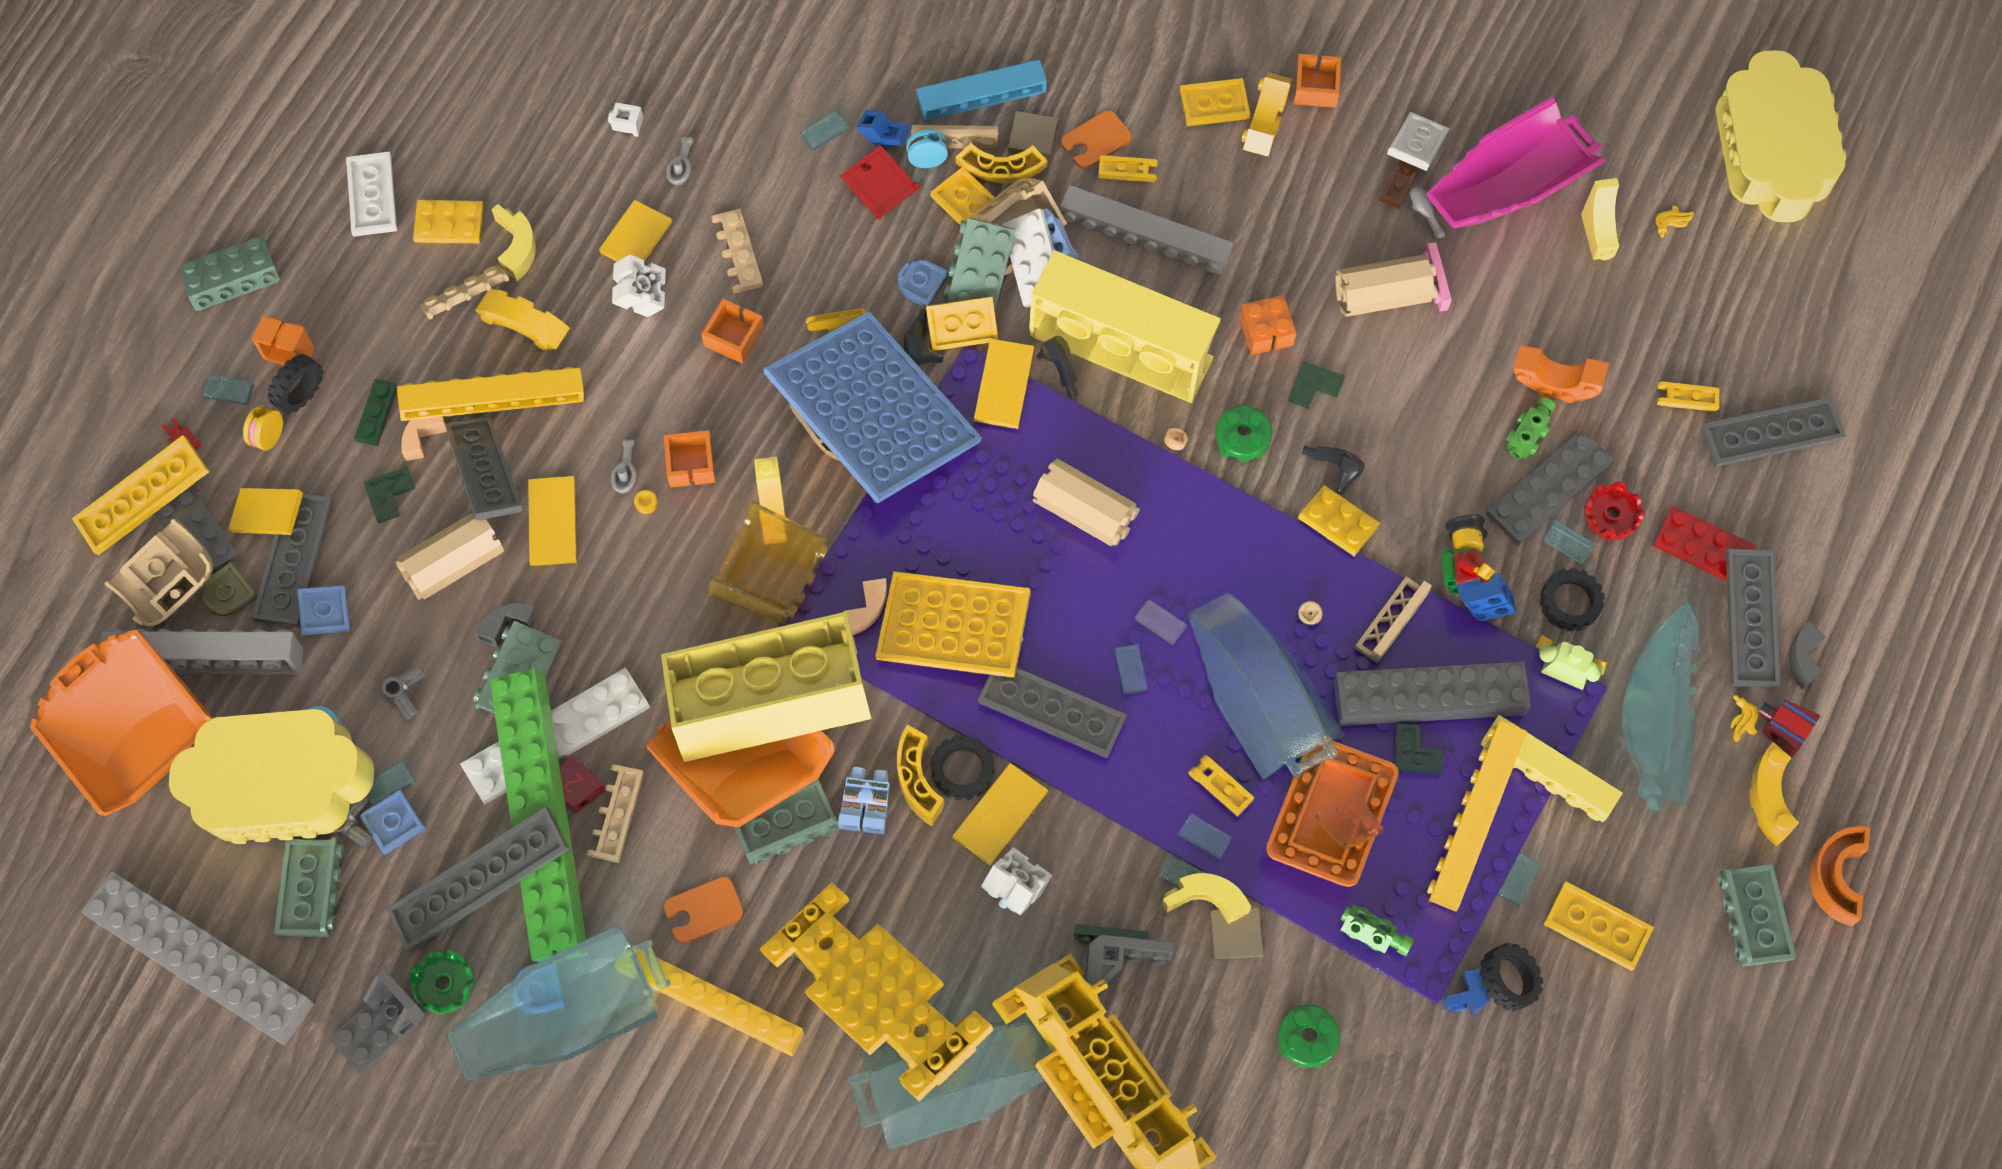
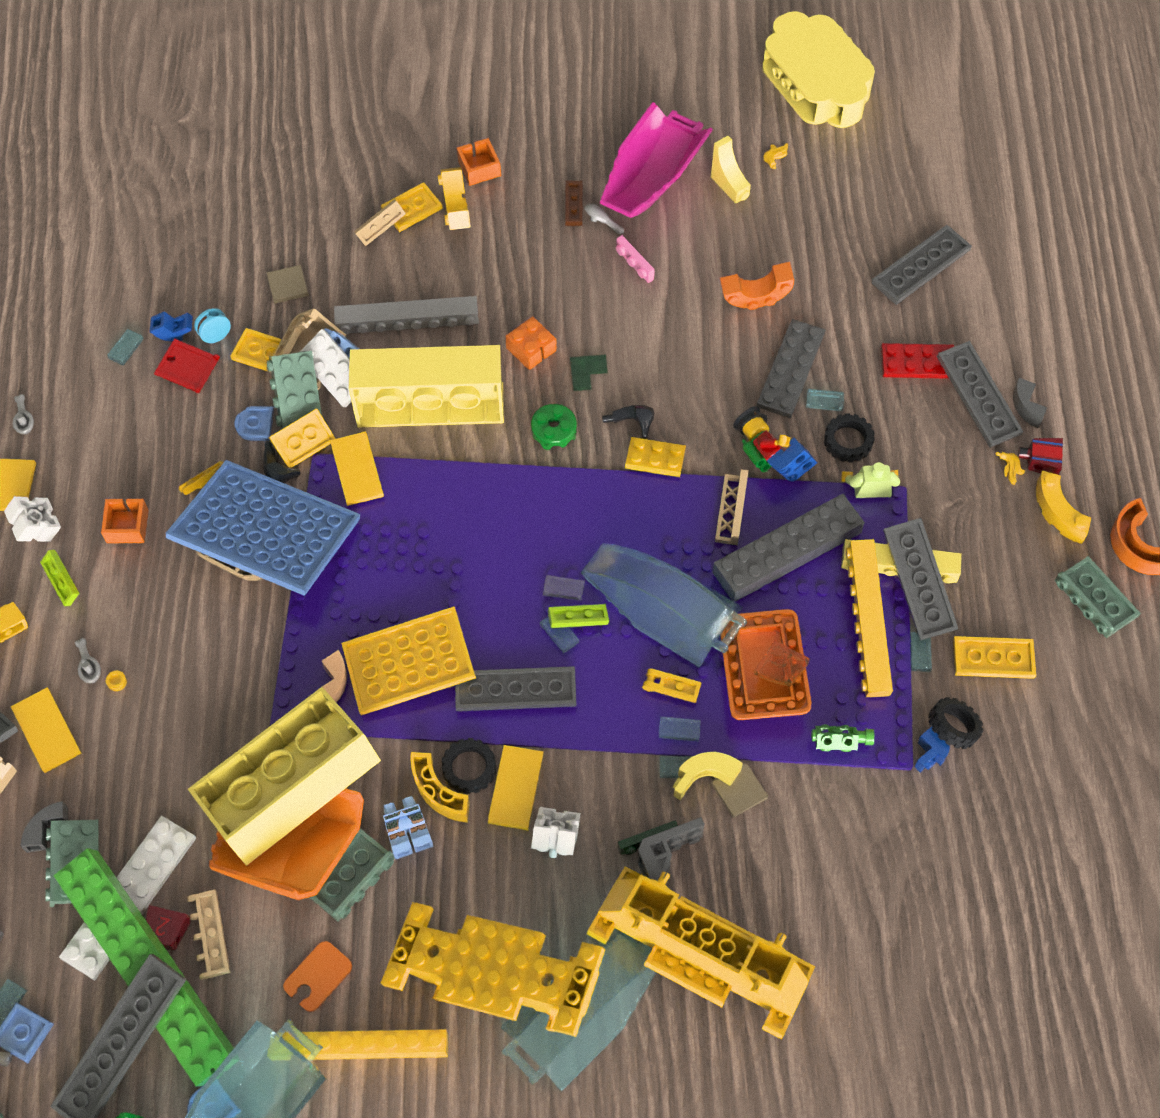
camera: 25 degrees left, 5 degrees down
(638, 362) = (59, 577): none -> lime plate
(689, 458) = (136, 631): orange piece -> none
(739, 249) = (100, 460): tan hinge -> none
(769, 484) = (217, 632): light yellow arch -> none
(769, 565) = (240, 681): clear yellow windscreen -> none
(961, 136) = (239, 305): tan fence -> none
(981, 90) = (232, 269): dark azure brick -> none
(1001, 169) = (277, 317): yellow brick -> none
(1058, 351) = (386, 427): black animal -> none
(1085, 503) = (464, 525): tan brick -> none
(1100, 136) = (340, 265): orange piece -> none
(1127, 168) = (370, 278): yellow hinge -> none
(1158, 661) = (578, 616): none -> lime plate
(1168, 106) = (380, 222): none -> tan plate
(1175, 439) = (505, 452): light nougat tile -> none
(1296, 1048) = (827, 852): green plate -> none
(1310, 613) = (670, 530): light nougat tile -> none
(1385, 285) = (602, 279): tan brick -> none
(1410, 756) = (798, 599): tile -> none
(1418, 141) = (572, 173): white tile -> none
(1530, 430) = (756, 334): bright green brick -> none
(1558, 799) = (920, 579): none -> dark grey plate
(1621, 500) = (847, 355): red plate -> none
(1658, 711) = (953, 487): clear light blue windscreen -> none
(1689, 396) = (852, 265): yellow hinge -> none

